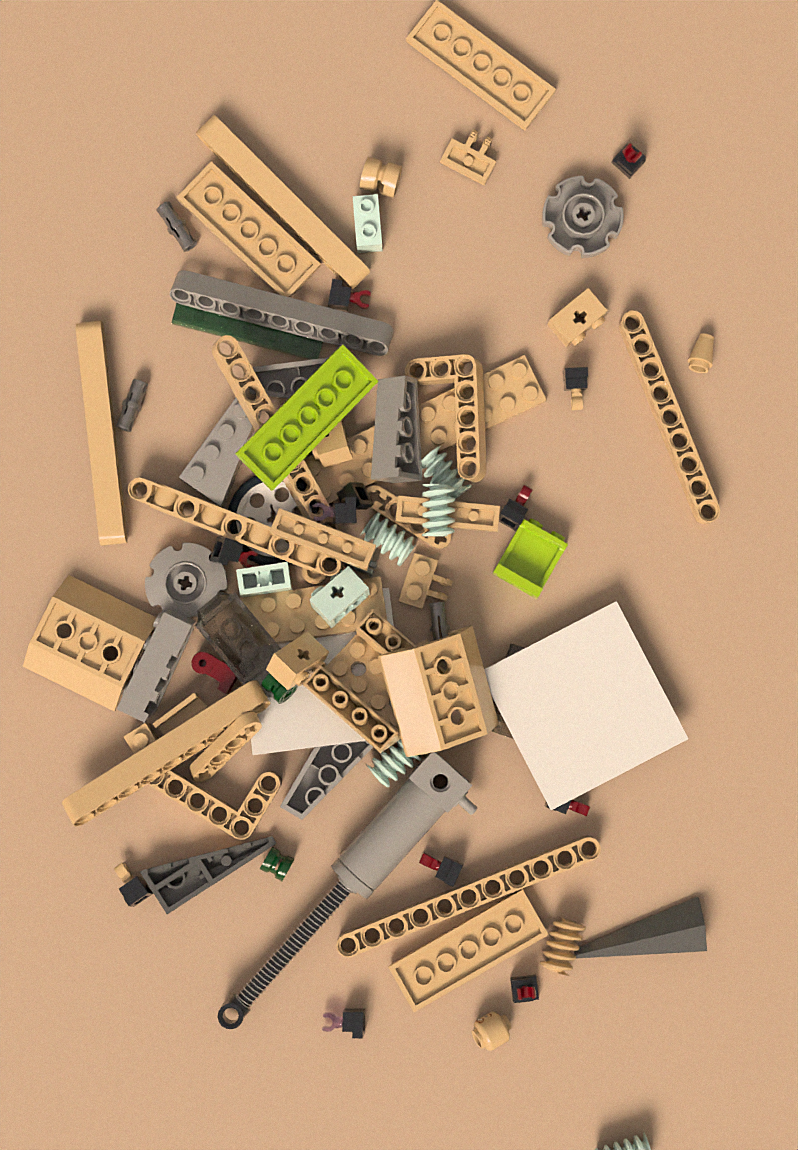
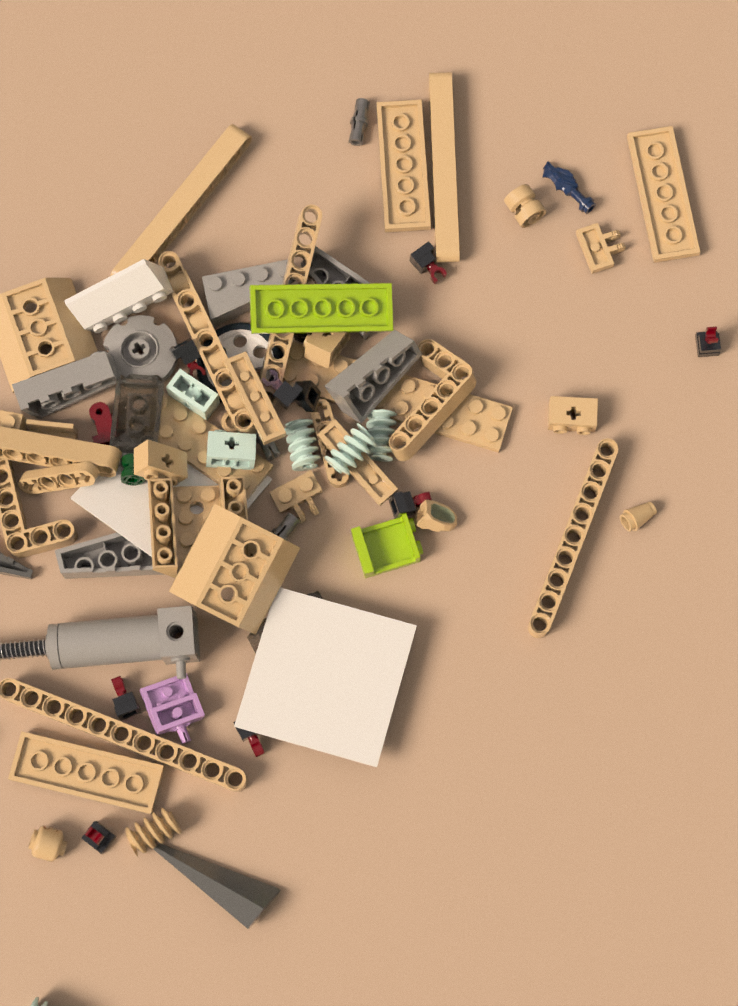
camera: 45 degrees right, 10 degrees down
(130, 555) = (120, 296): none -> white slope
(131, 405) = (218, 207): flat silver pin -> none
(246, 332) = (342, 227): clear green tile -> none
(271, 862) = (17, 591): dark green wheel -> none
(281, 313) = (374, 235): light grey beam -> none
(367, 223) = (487, 228): light aqua brick -> none
(391, 763) = (158, 595): light aqua piece -> none
(394, 126) = (565, 181): none -> dark blue piece
(486, 839) = (172, 706): none -> lavender plate
(547, 501) = (435, 517): none -> tan rock
(575, 380) = (531, 456): black piece -> none
(591, 200) = (657, 351): light grey piece -> none

